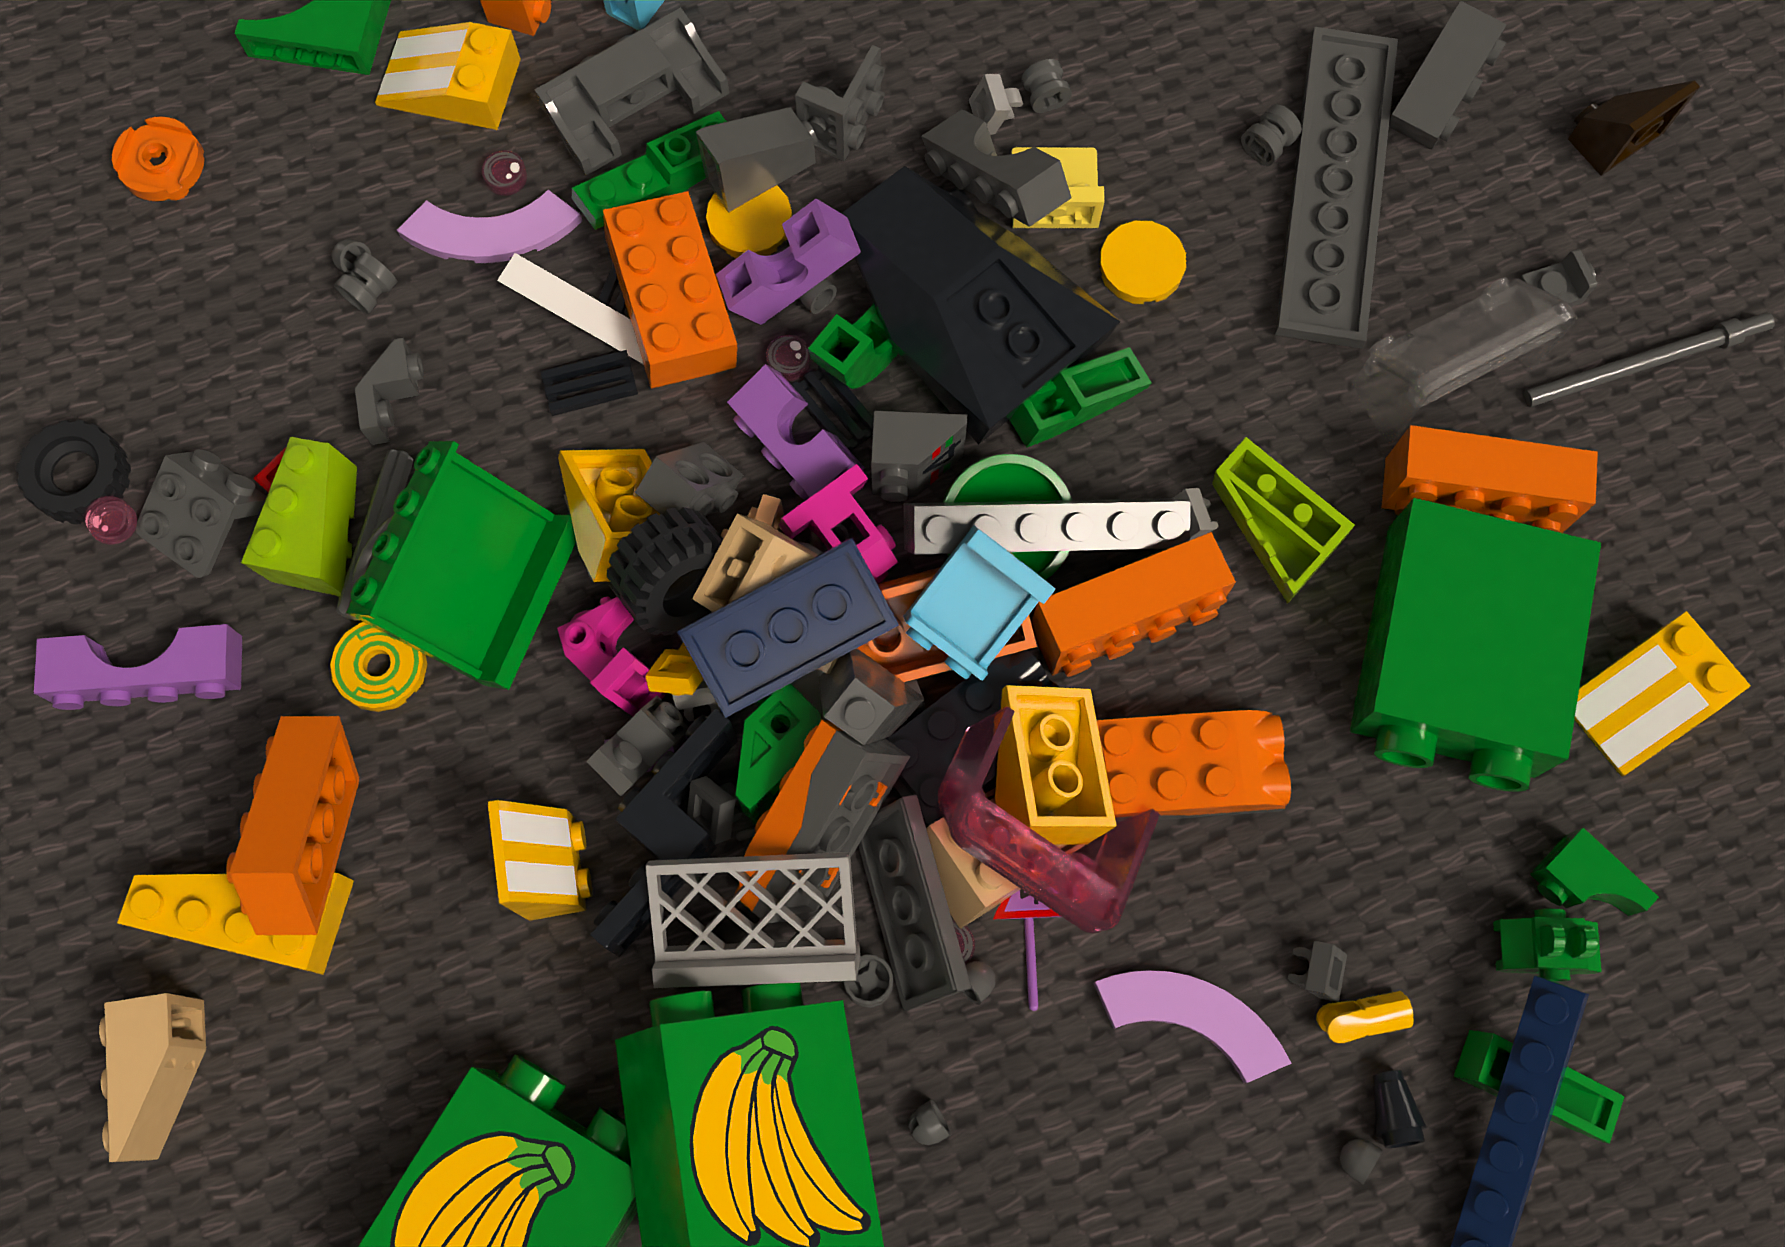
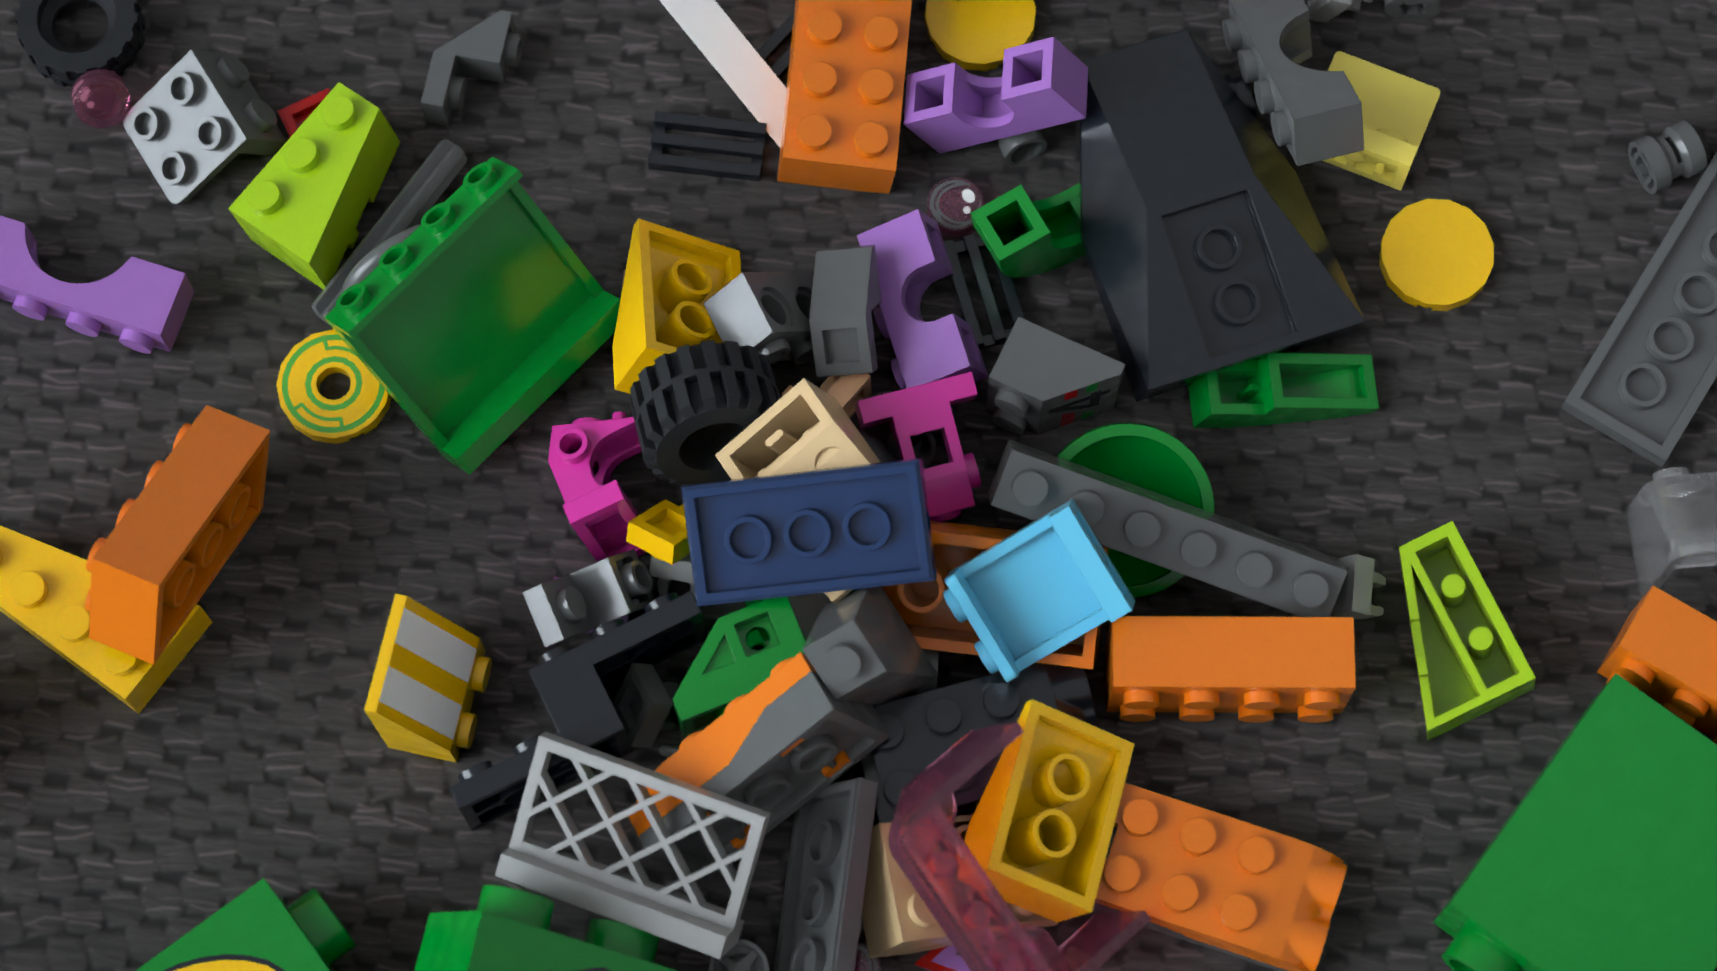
camera: 25 degrees right, 0 degrees up
(741, 458) = (840, 310): none -> dark grey slope

